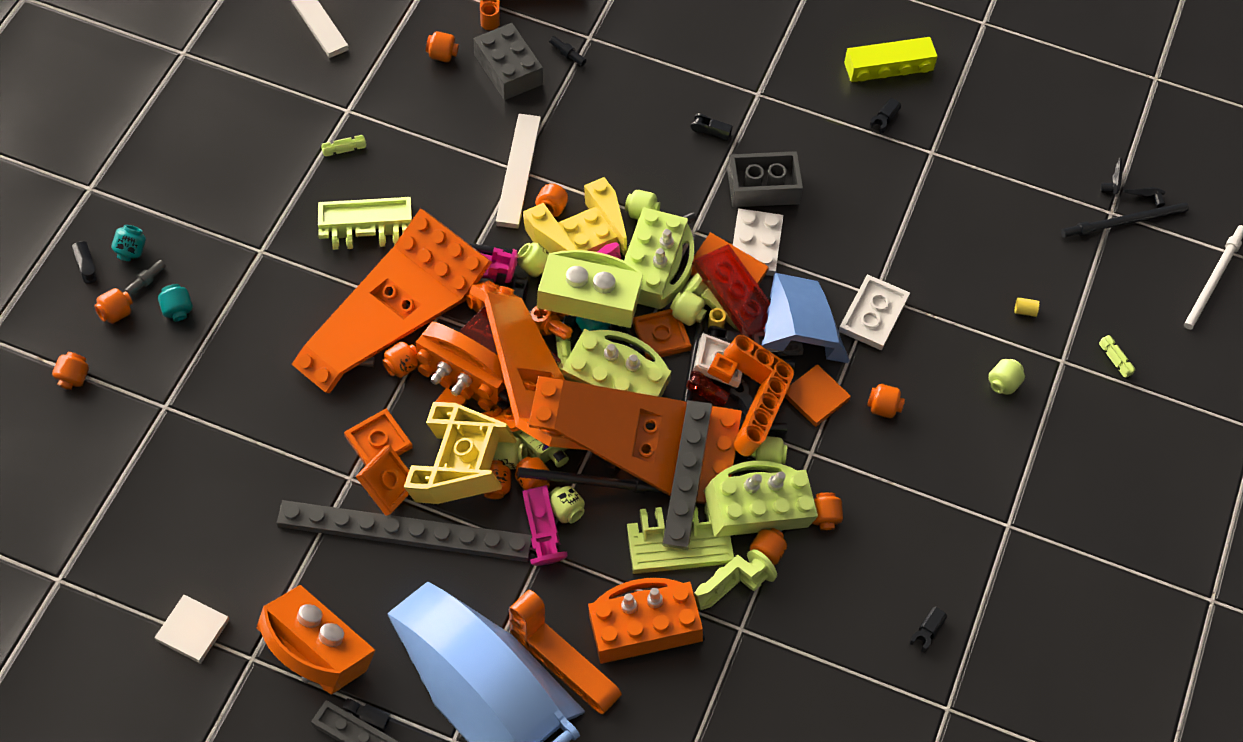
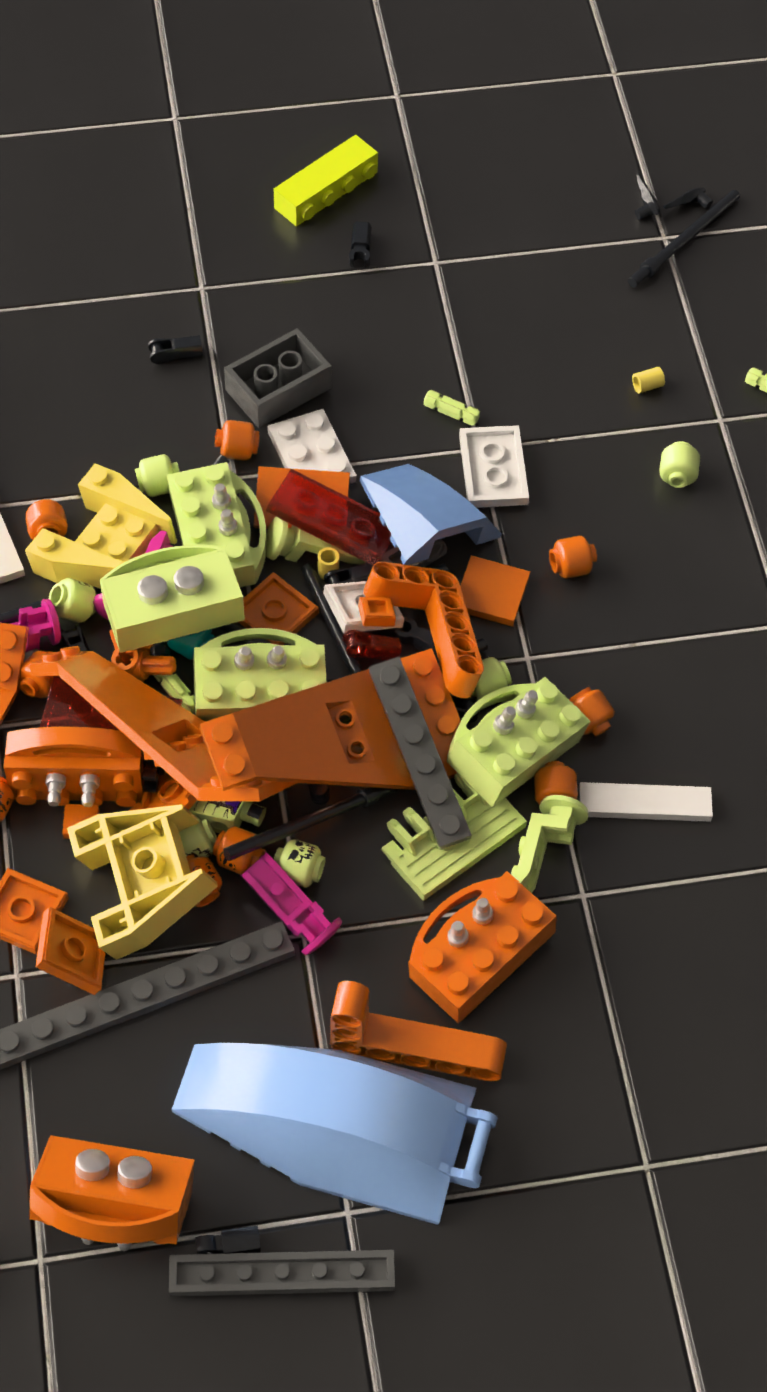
camera: 30 degrees left, 0 degrees up
(688, 308) = (290, 565): yellowish green head -> none
(711, 208) = (237, 440): none -> orange head
(825, 591) = (647, 801): none -> white tile
(873, 257) = (451, 407): none -> yellowish green axle

